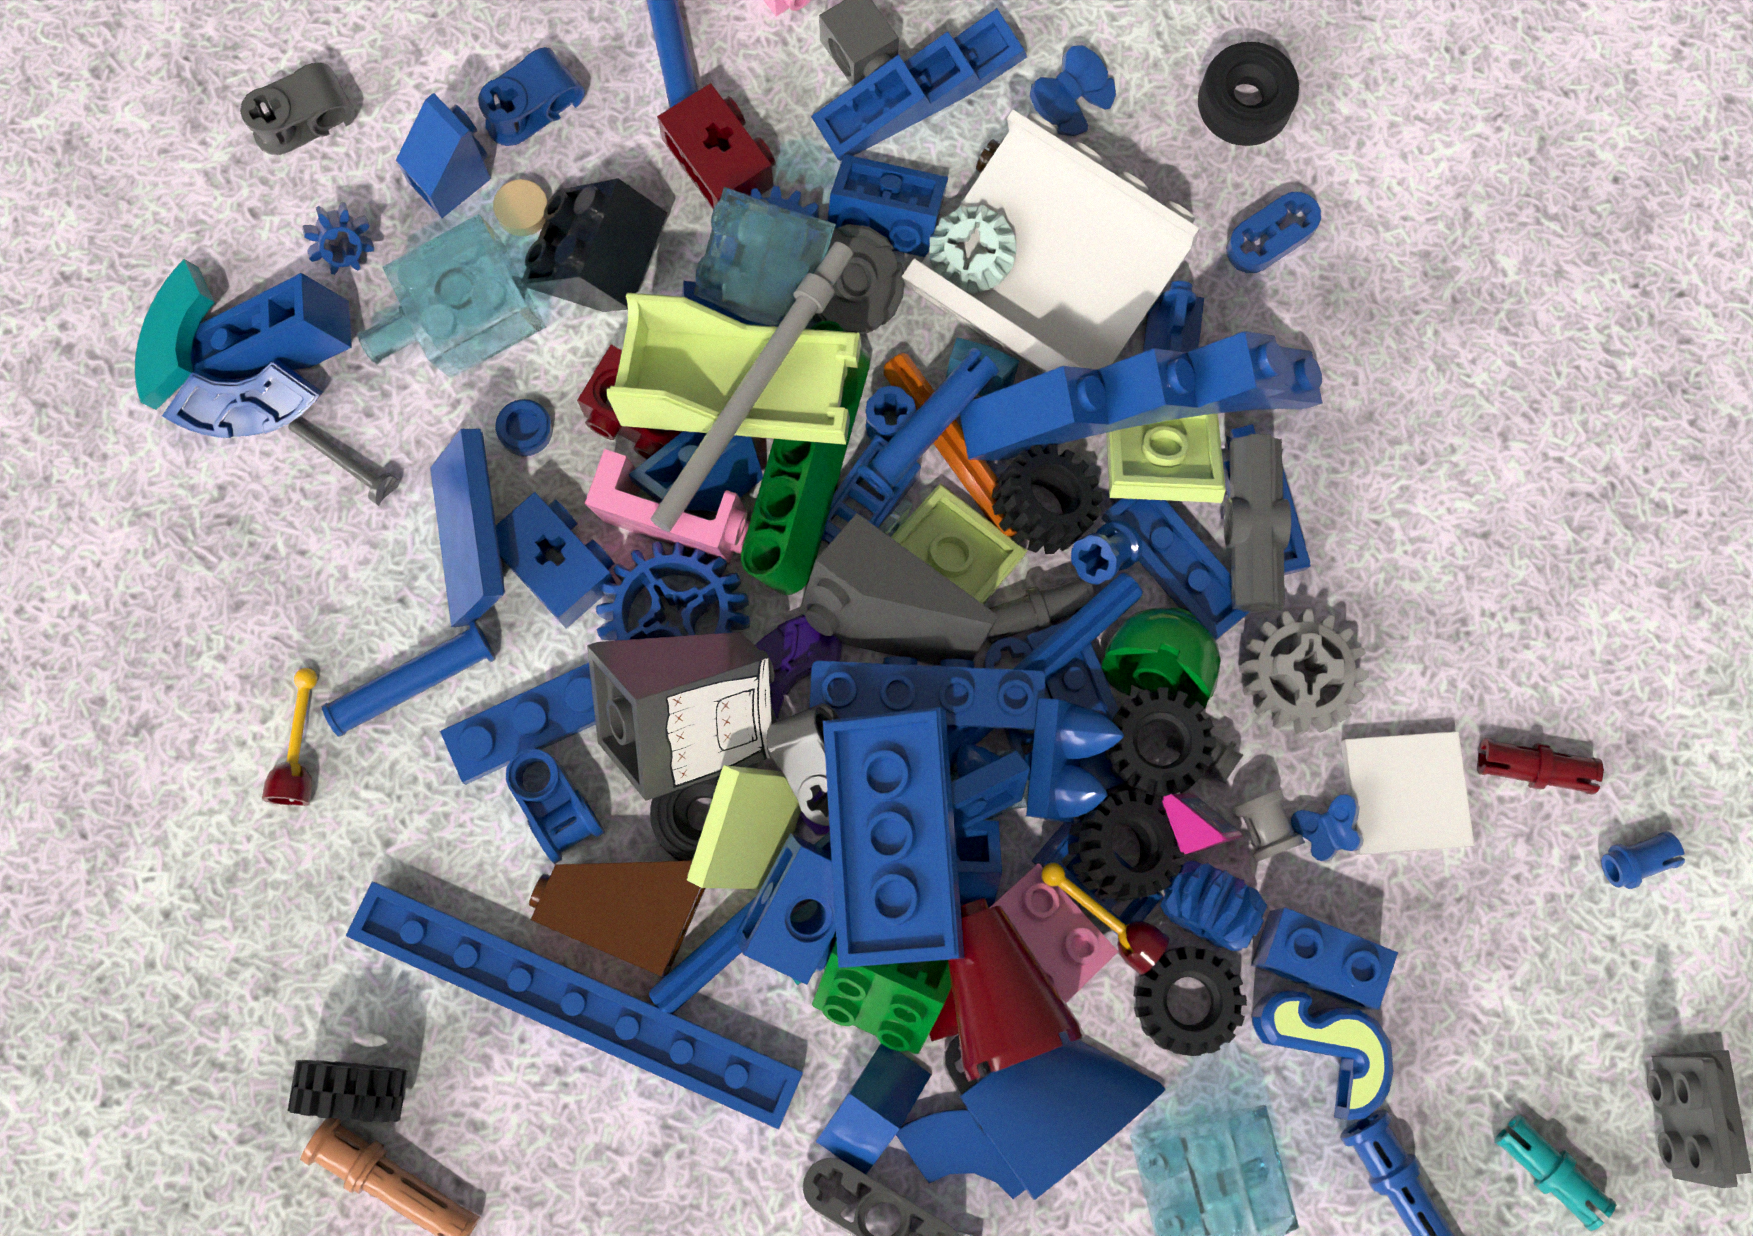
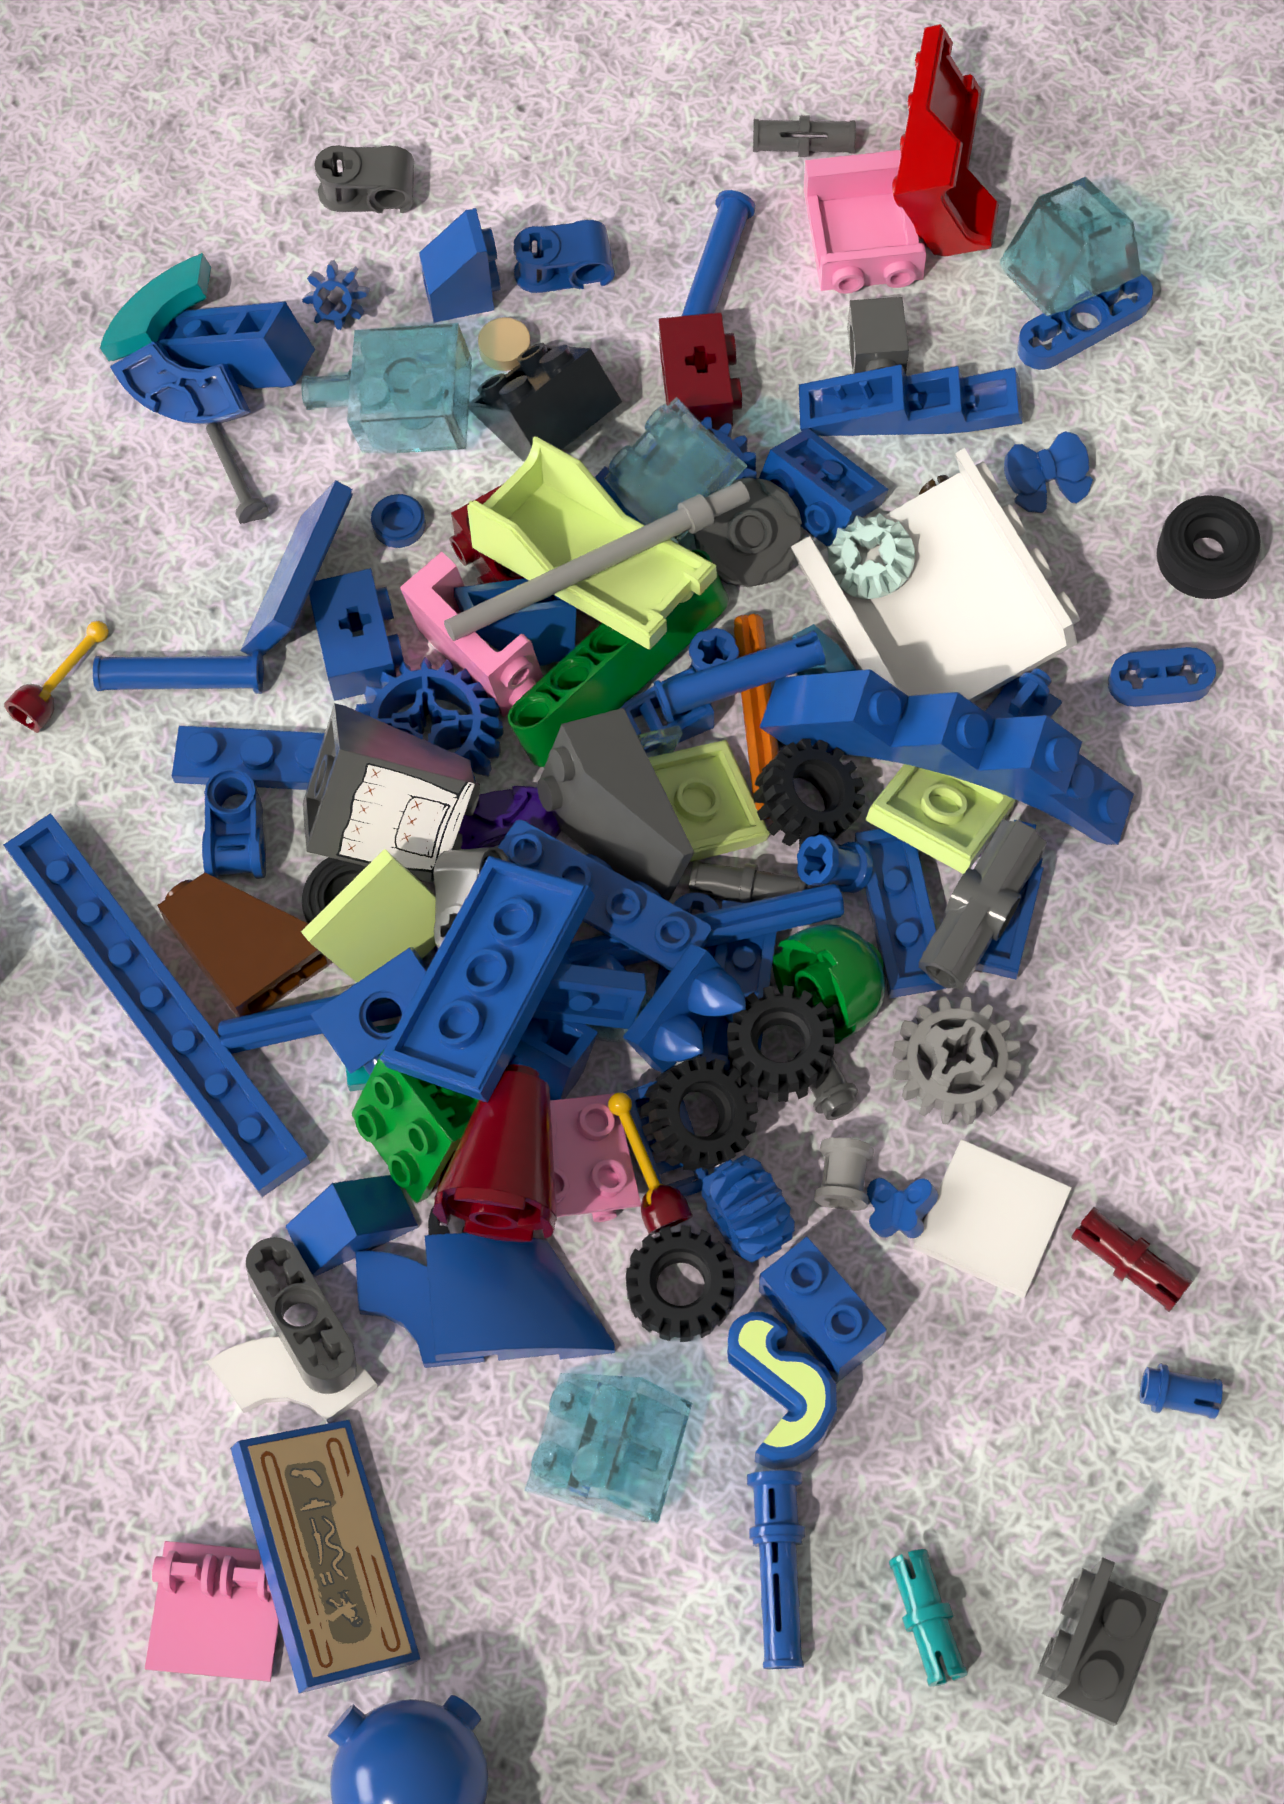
camera: 35 degrees right, 10 degrees down
(1197, 824) = (772, 1129): dark pink slope -> none

